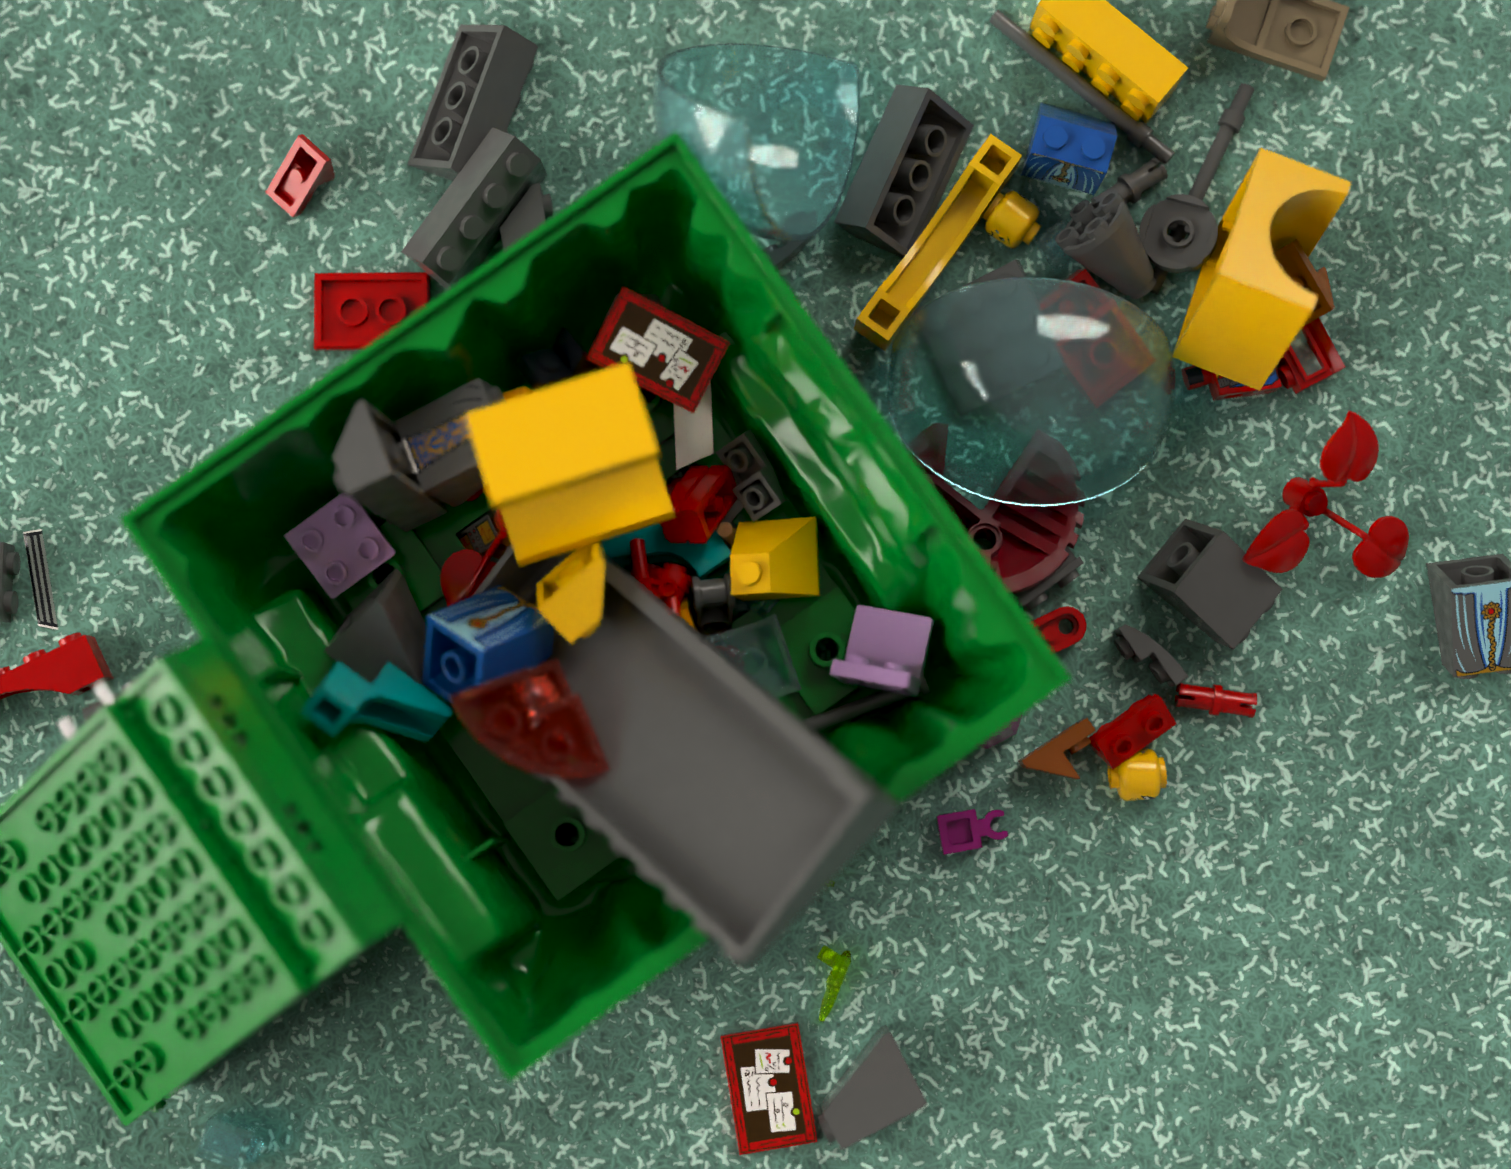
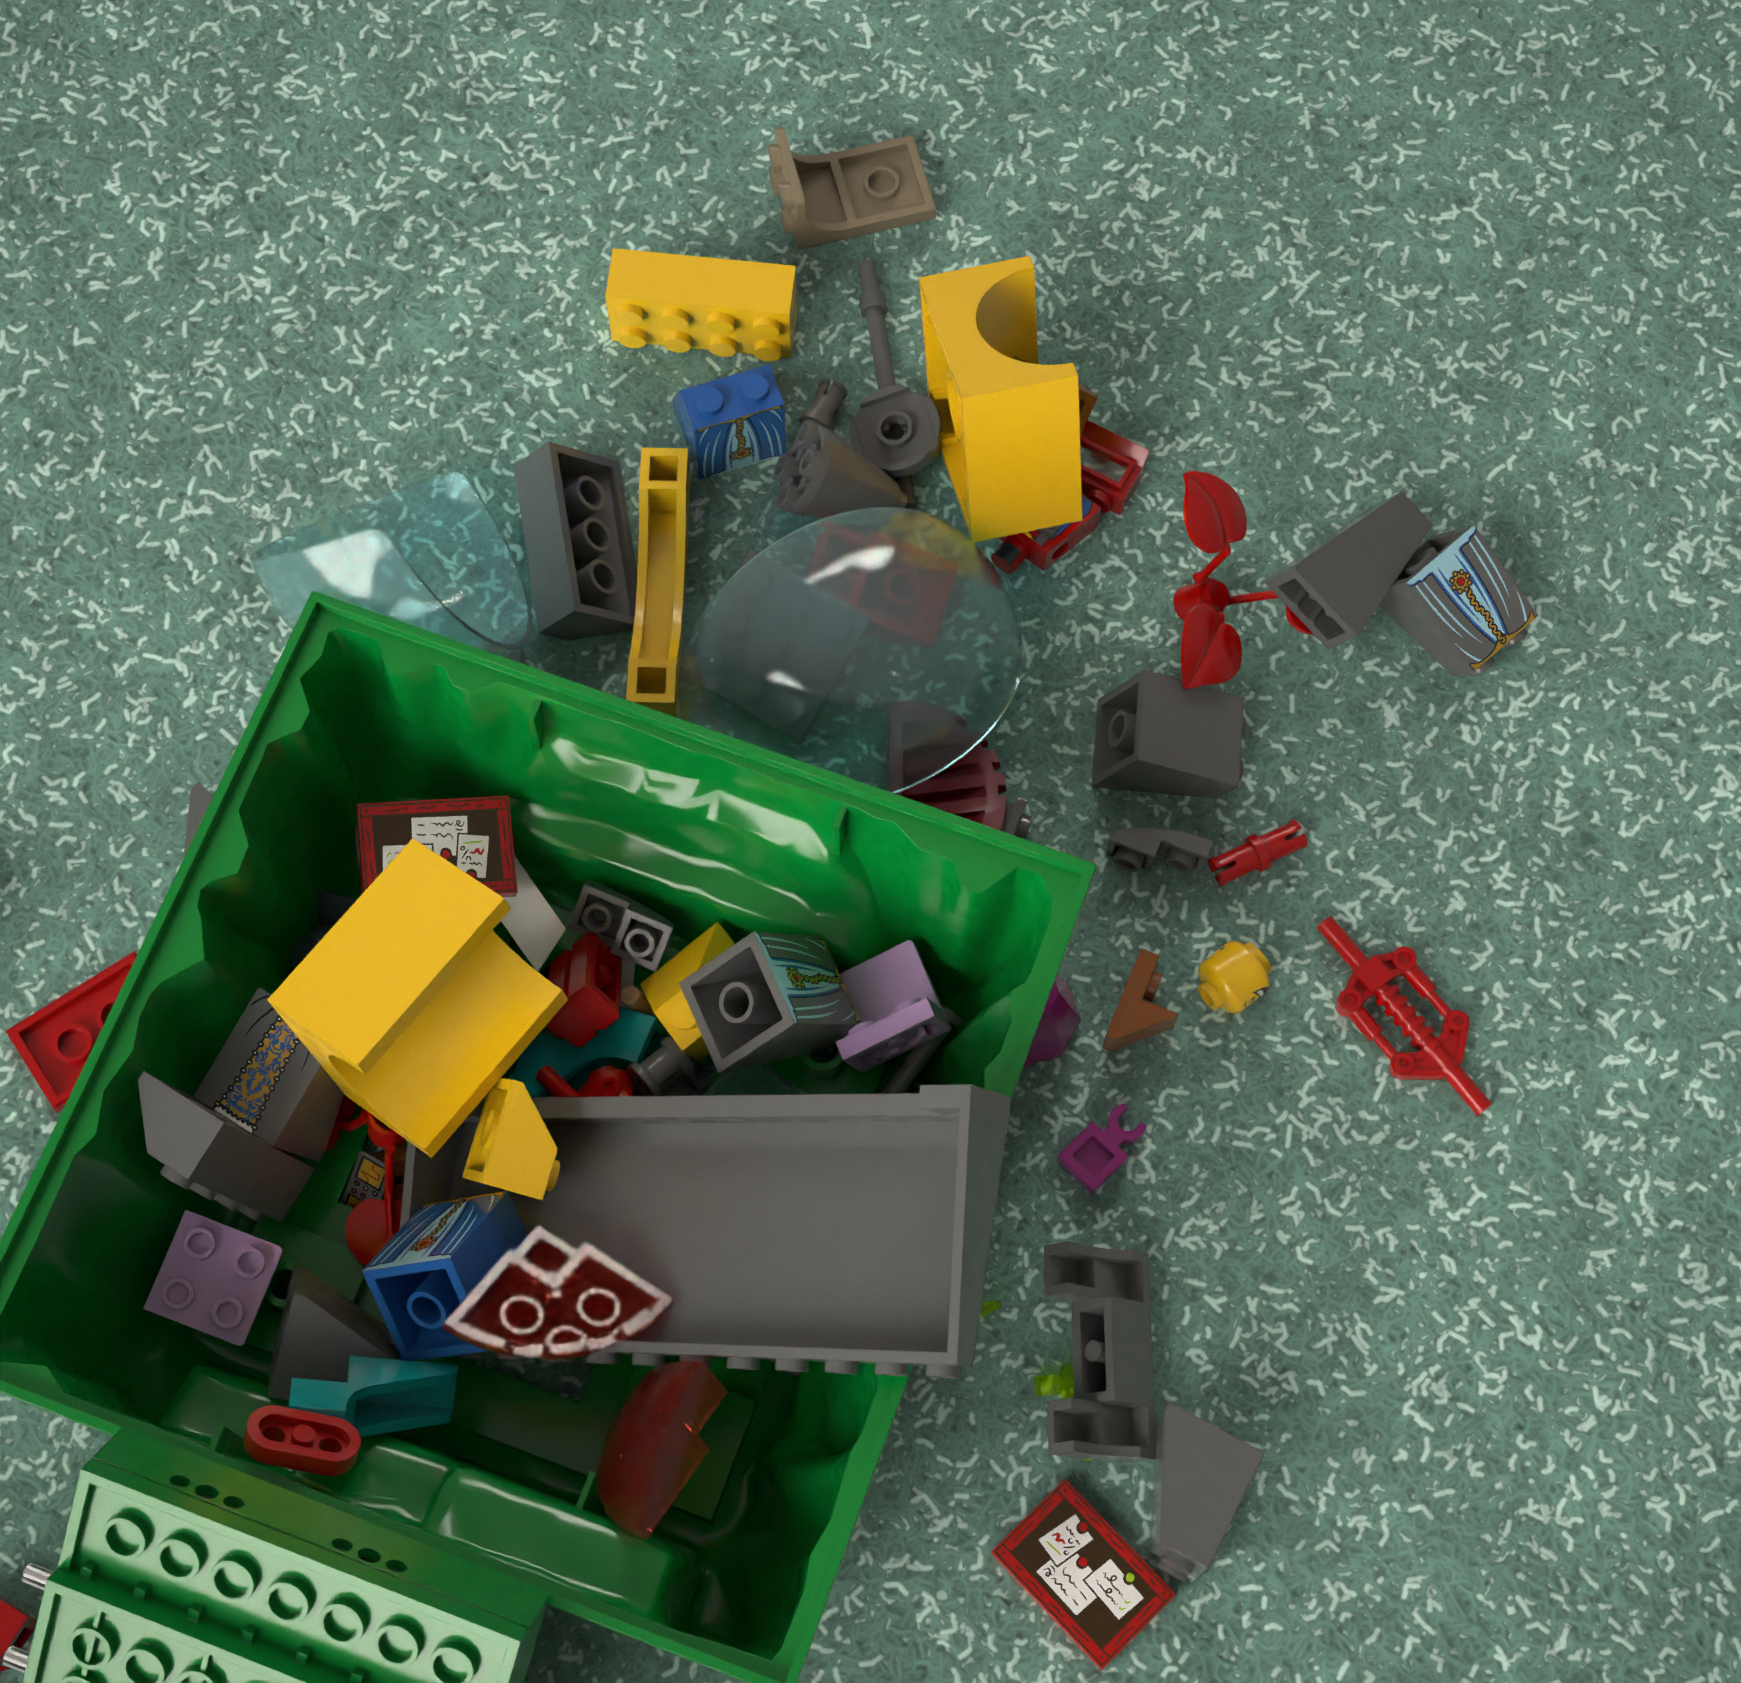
camera: 35 degrees left, 15 degrees down
(315, 712) = (301, 1440): none -> red plate
(473, 94) = (75, 752): dark grey slope -> none
(473, 208) = (140, 839): dark grey slope -> none
(533, 858) = (656, 1443): none -> clear red brick
(808, 602) = (769, 1000): none -> dark grey slope
(878, 969) = (1111, 1353): none -> dark grey bracket
(1012, 219) = (720, 523): yellow head -> none
(1132, 730) = (1196, 933): red bracket -> none
(1139, 133) = (790, 368): dark grey bar -> none
(1235, 918) = (1372, 977): none -> red bar
(1424, 548) = (1351, 571): none -> dark grey slope

